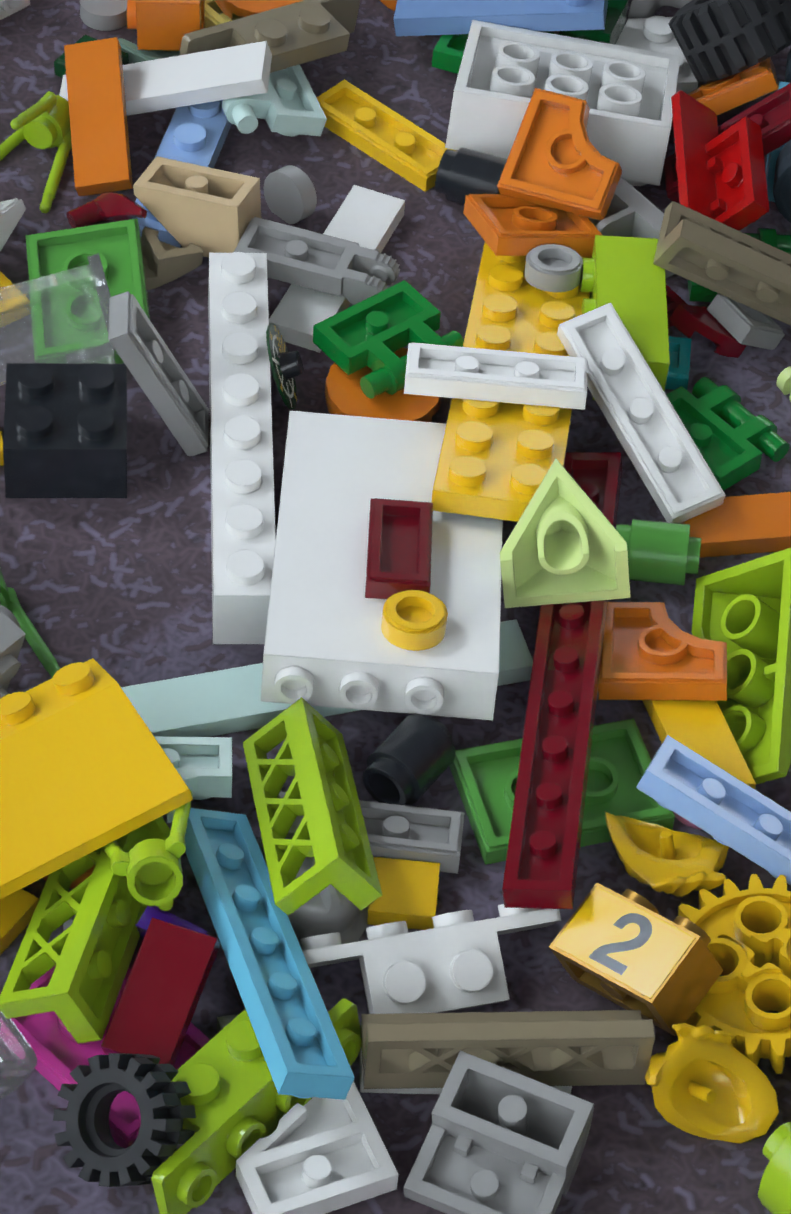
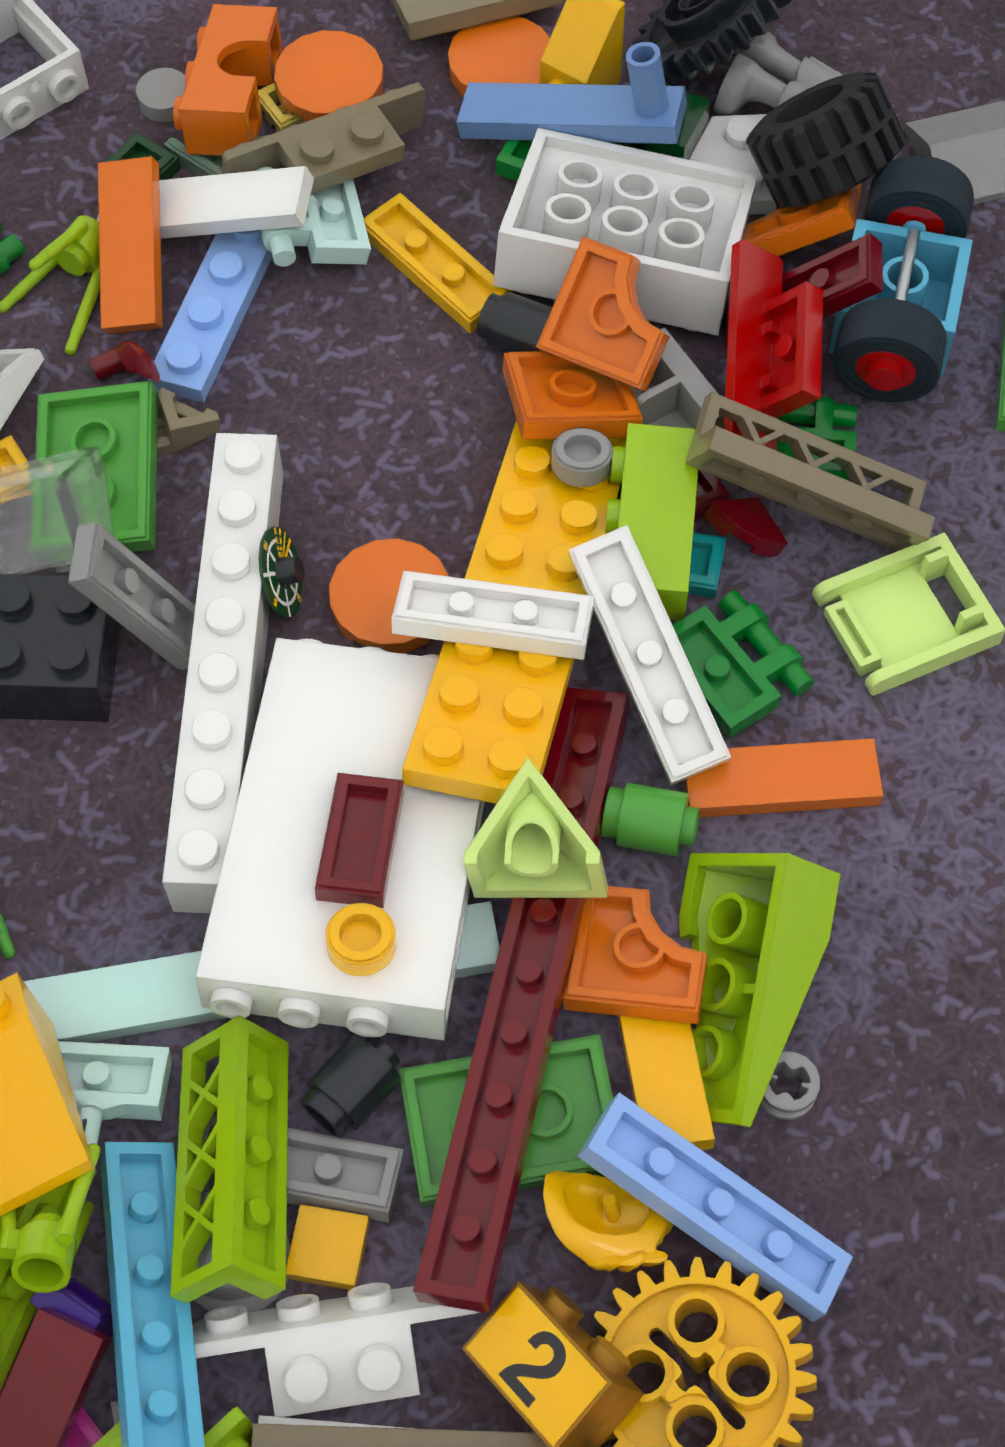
camera: 10 degrees right, 15 degrees up
(199, 203) = (222, 366): tan slope -> none
(290, 194) = (322, 342): light grey tile -> none
(319, 260) = (334, 437): light grey hinge -> none
(362, 218) = (361, 435): white tile -> none
(376, 329) = (387, 526): green plate -> none
(746, 324) = (785, 525): light grey tile -> none

